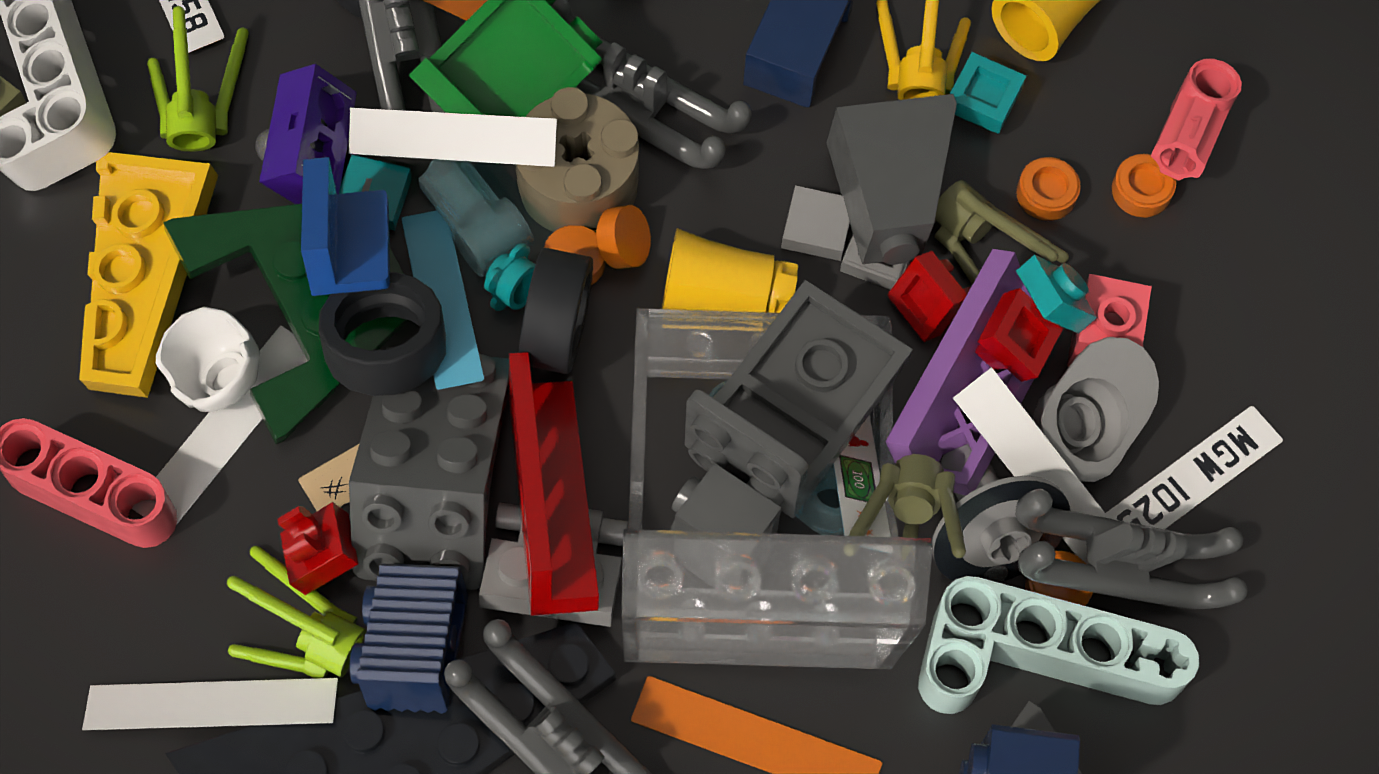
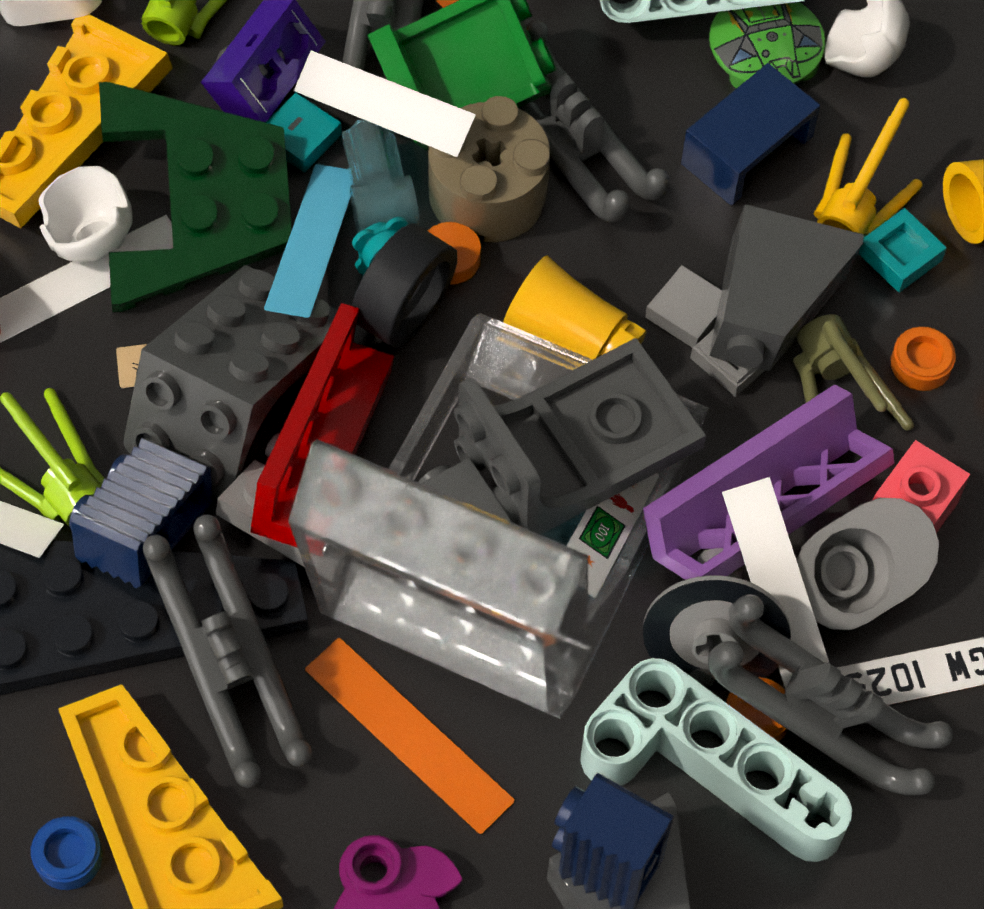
camera: 25 degrees right, 5 degrees down
(316, 546) = (97, 404): red tile -> none
(343, 234) = (239, 149): blue panel -> none
(391, 369) = (237, 273): black tyre -> none
(623, 237) = (501, 250): orange tile -> none
(916, 492) = (648, 565): olive plant -> none
(928, 295) = (756, 401): red tile -> none
(1017, 336) = (815, 464): red tile -> none
(1057, 293) = (870, 441): teal plate -> none

